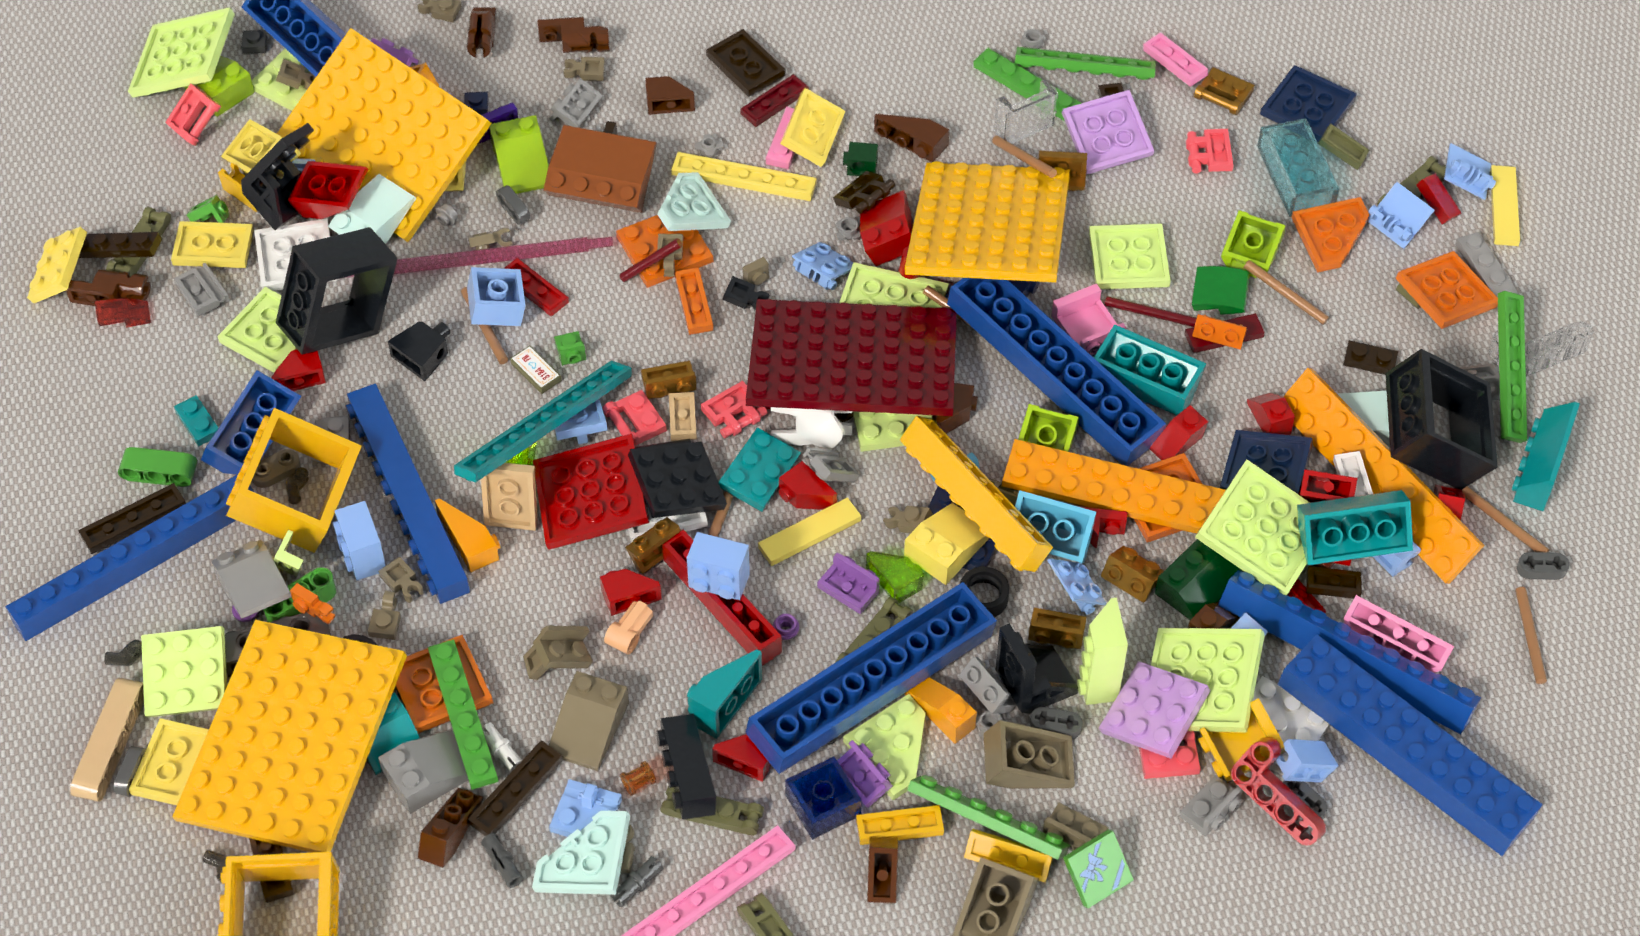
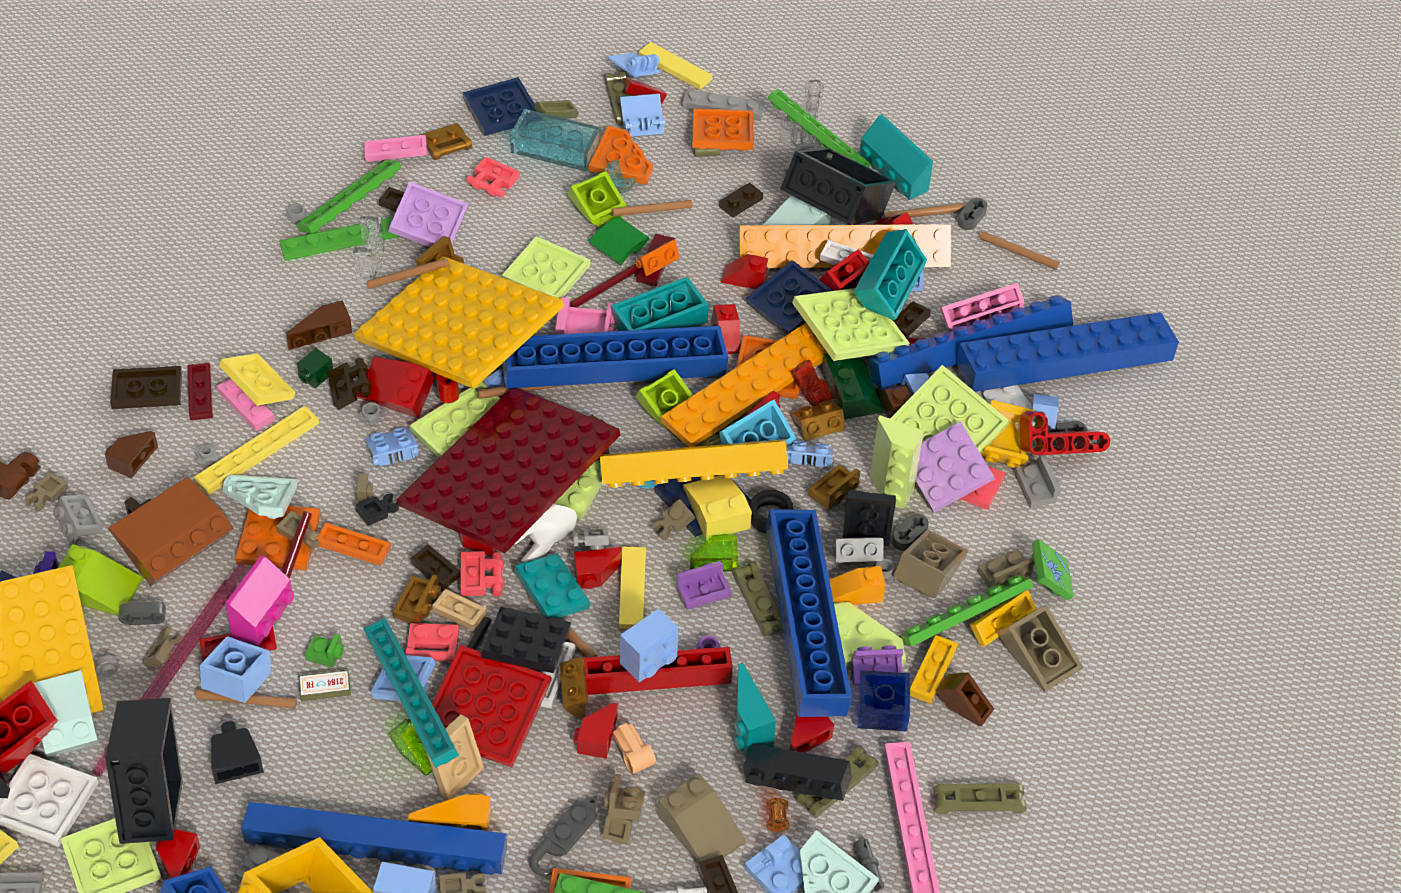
camera: 60 degrees left, 5 degrees down
(505, 625) = (565, 833): none -> dark grey plate
(572, 268) = (258, 602): none -> slope
(714, 372) = (432, 563): none -> dark brown plate
(1167, 539) = (810, 385): none -> clear red slope
(1295, 241) = (615, 173): none -> clear light blue bracket

